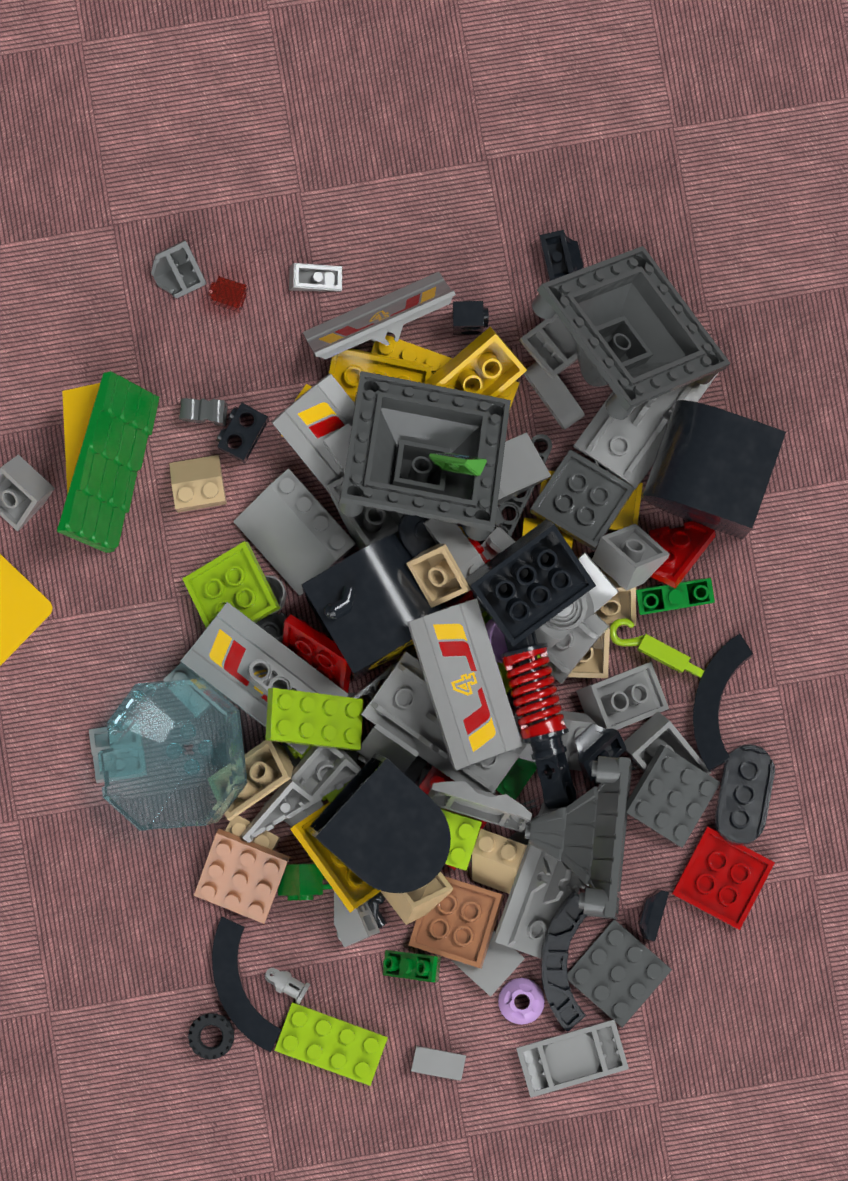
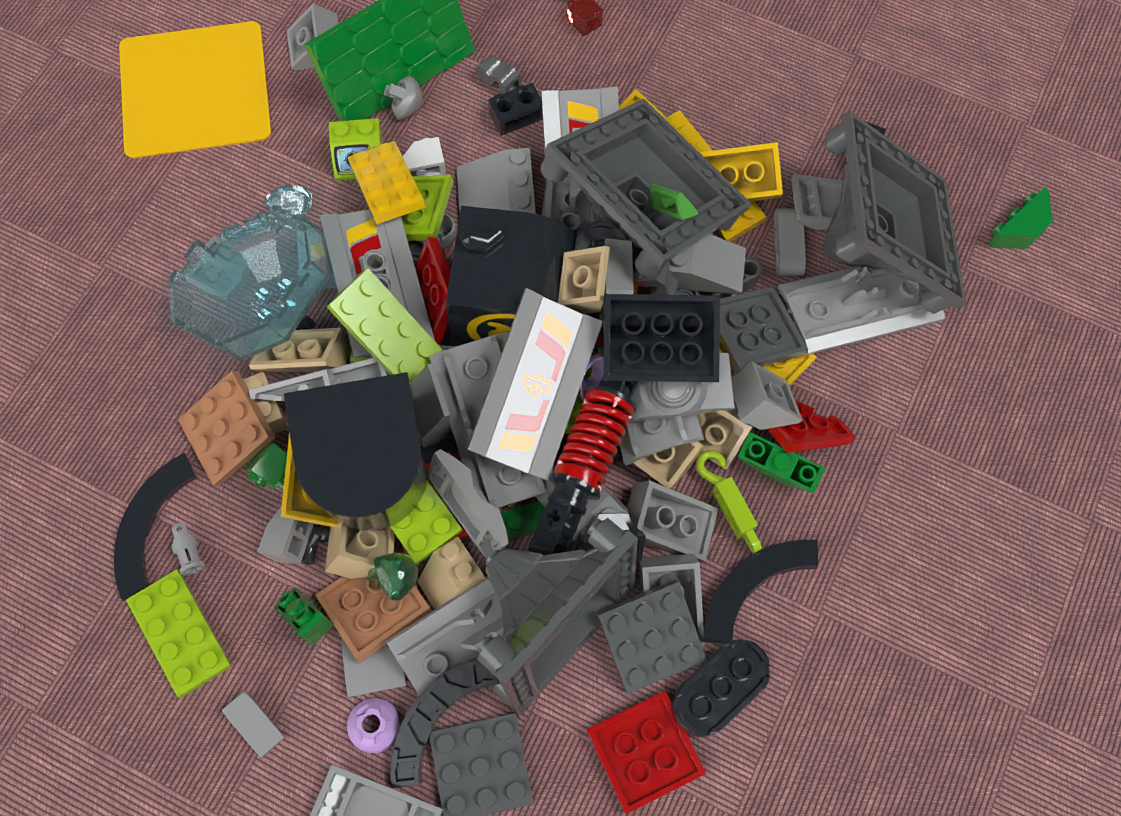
camera: 35 degrees right, 15 degrees down
(129, 659) = (291, 198): none -> clear light blue piece
(142, 569) = (350, 138): none -> lime slope
(144, 492) = (406, 97): none -> light grey piece
(195, 1036) = (72, 538): black tyre -> none
(197, 483) = (450, 122): tan slope -> none
(201, 588) = (386, 182): none -> yellow plate
(204, 538) = (425, 158): none -> white slope
(315, 277) = (659, 46): slope -> none
(379, 317) = (689, 92): light grey hinge -> none
(461, 890) = (395, 574): none -> clear green piece
(469, 317) = (761, 130): black brick -> none
(652, 913) = (553, 734): black slope -> none
(713, 467) = (896, 374): black brick -> none
(731, 236) = (1024, 224): none -> green slope

